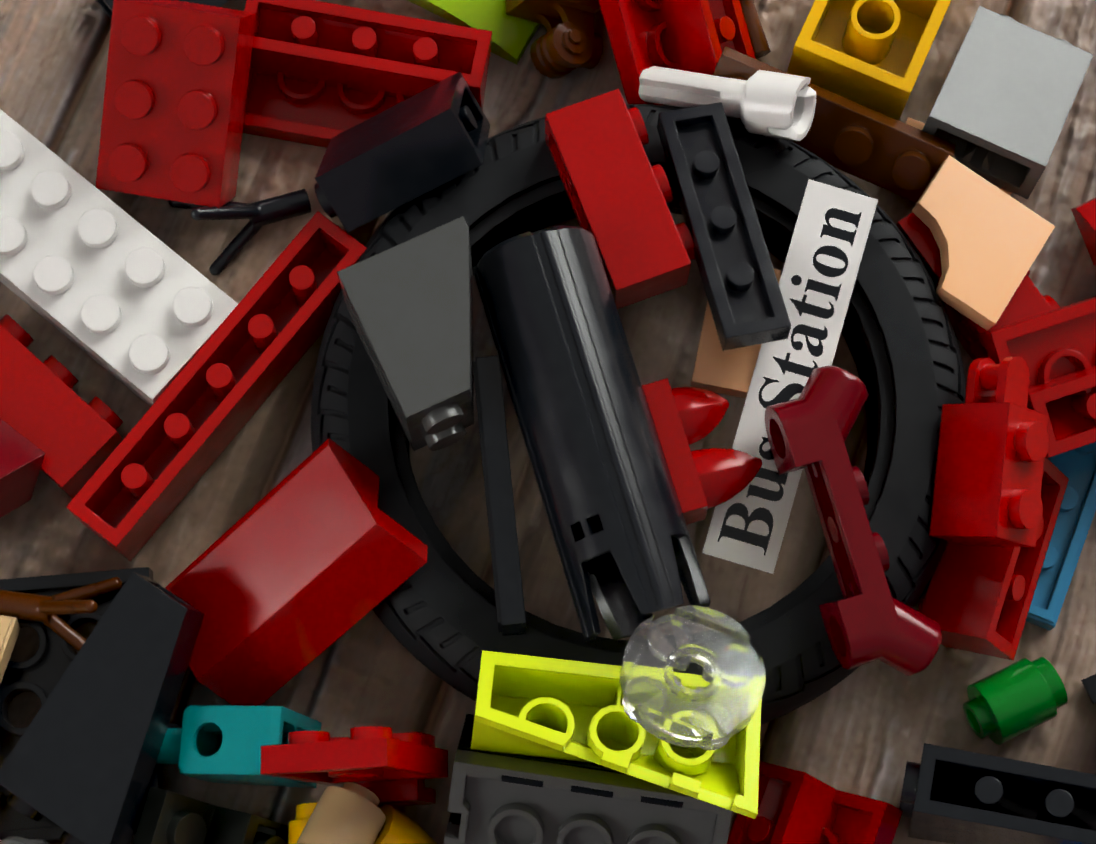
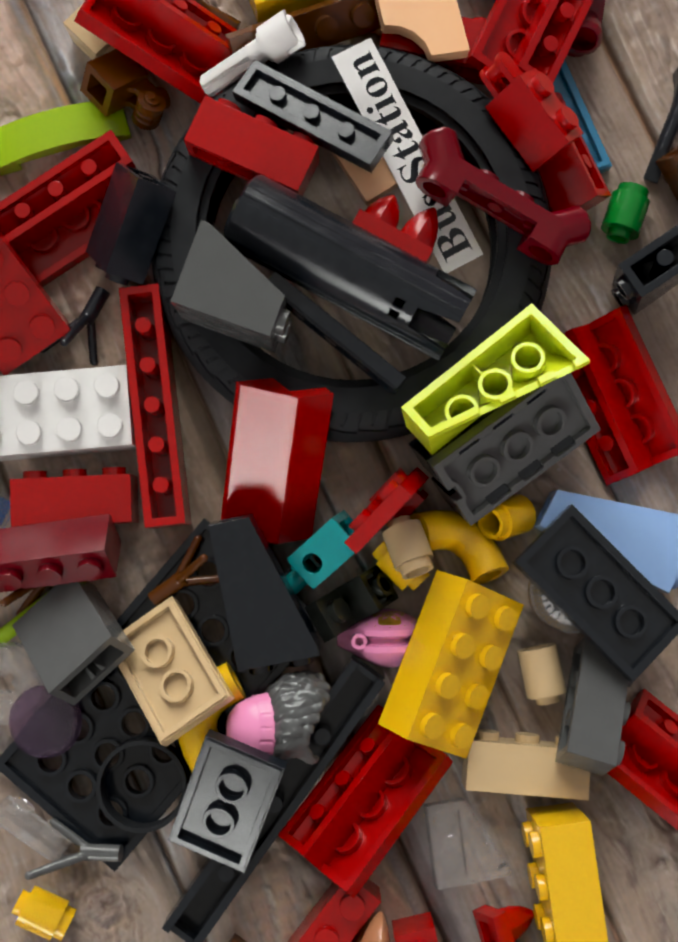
camera: 45 degrees left, 10 degrees up
(686, 715) = (500, 352): clear plate -> none

